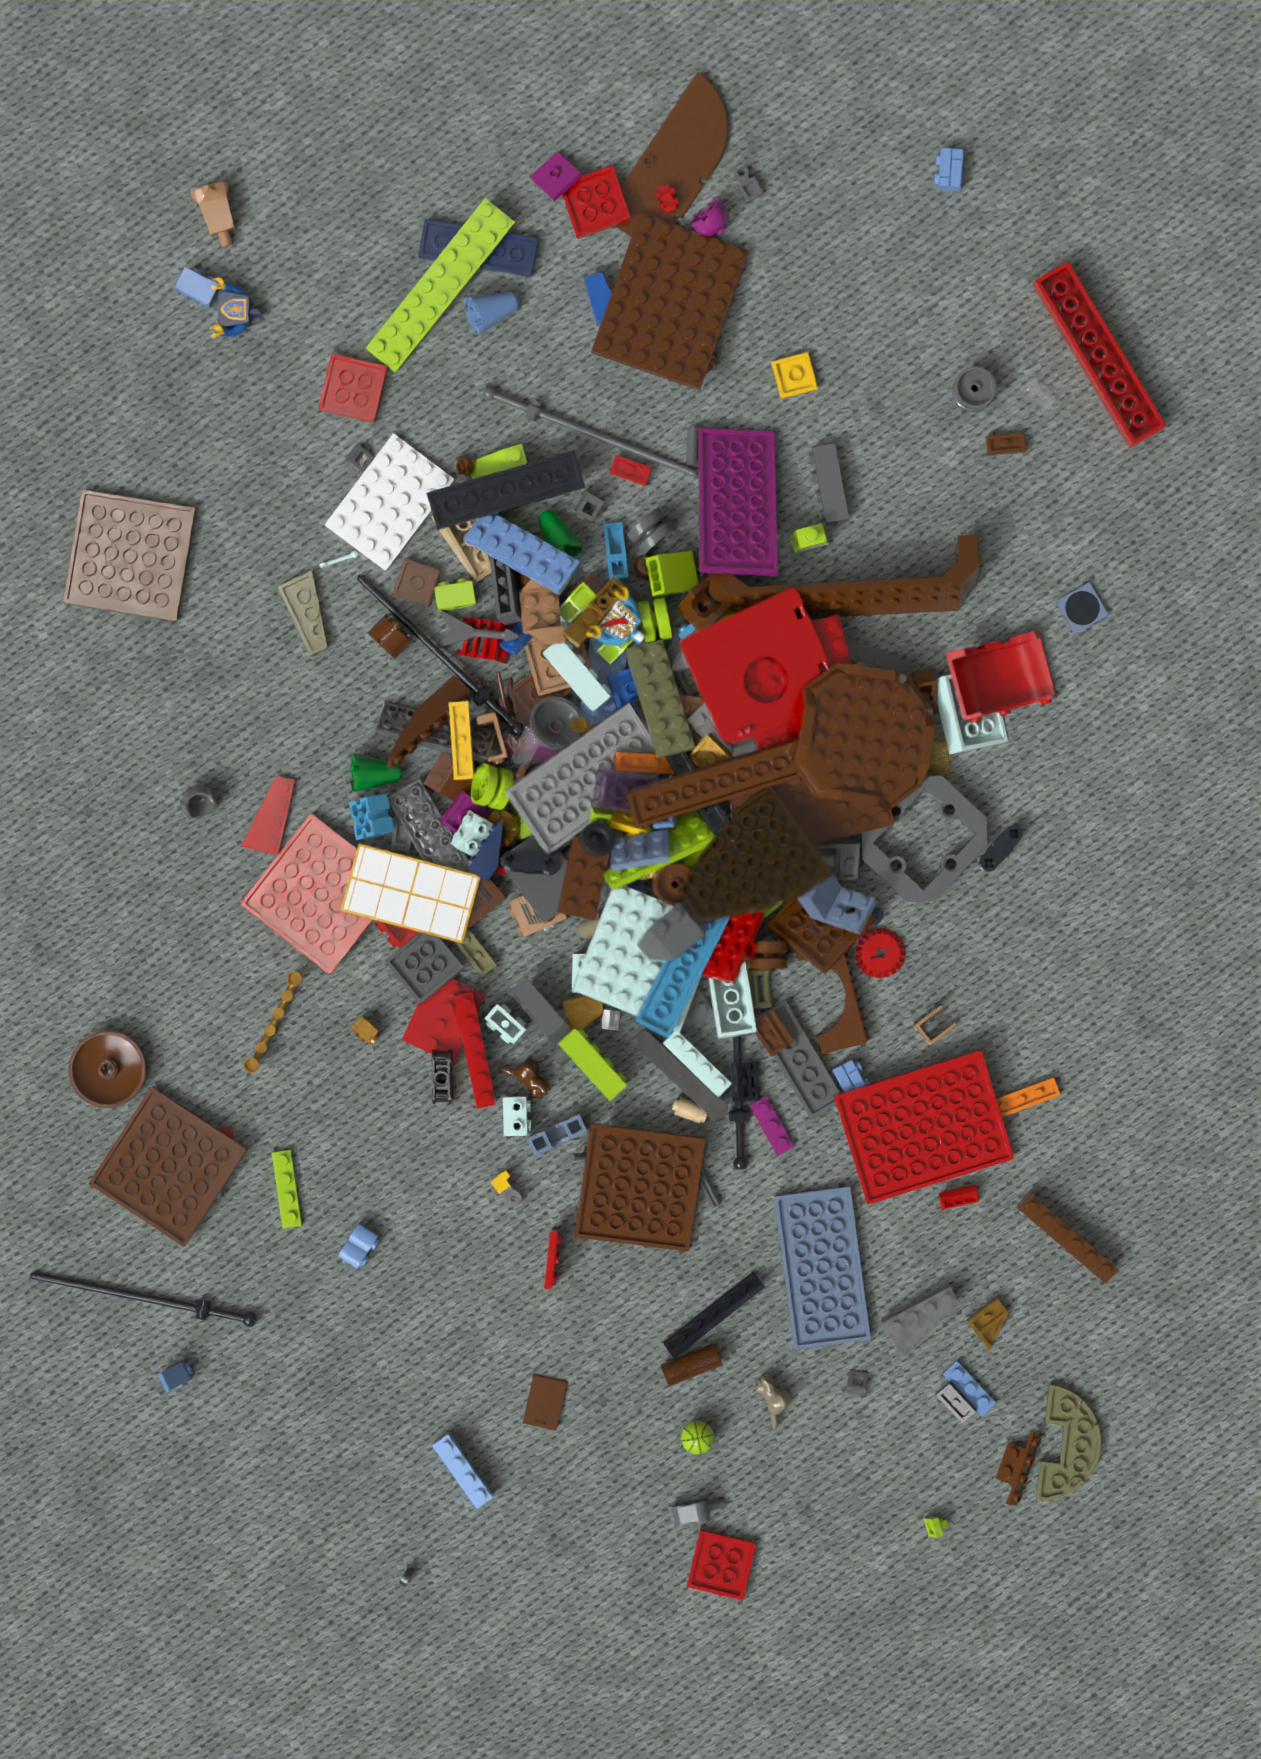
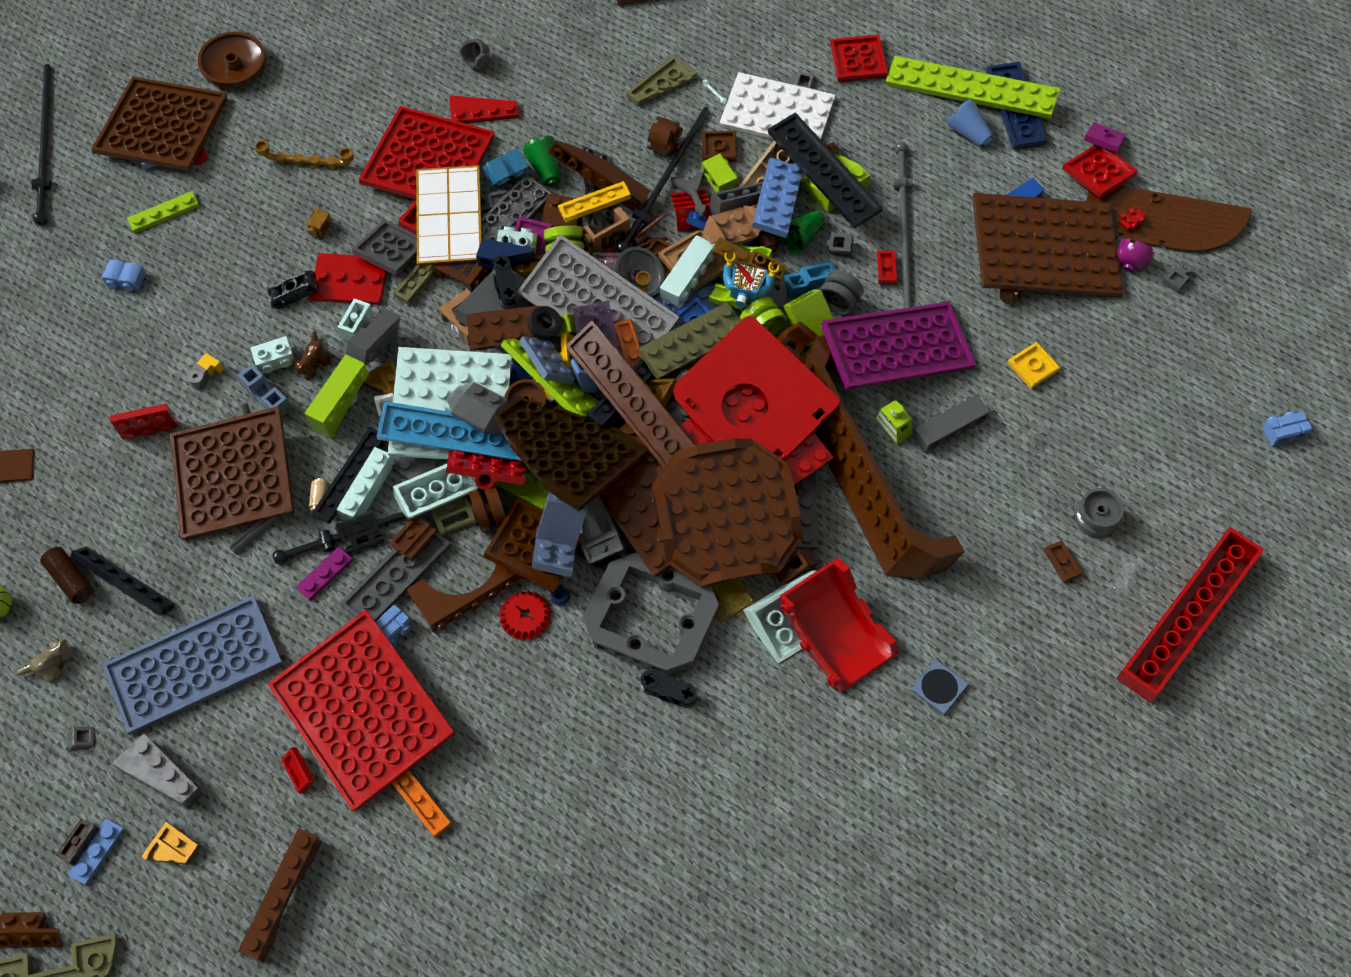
camera: 70 degrees right, 25 degrees down
(474, 1049) = (324, 303): red brick -> none
(940, 1034) = (461, 670): medium nougat piece -> none

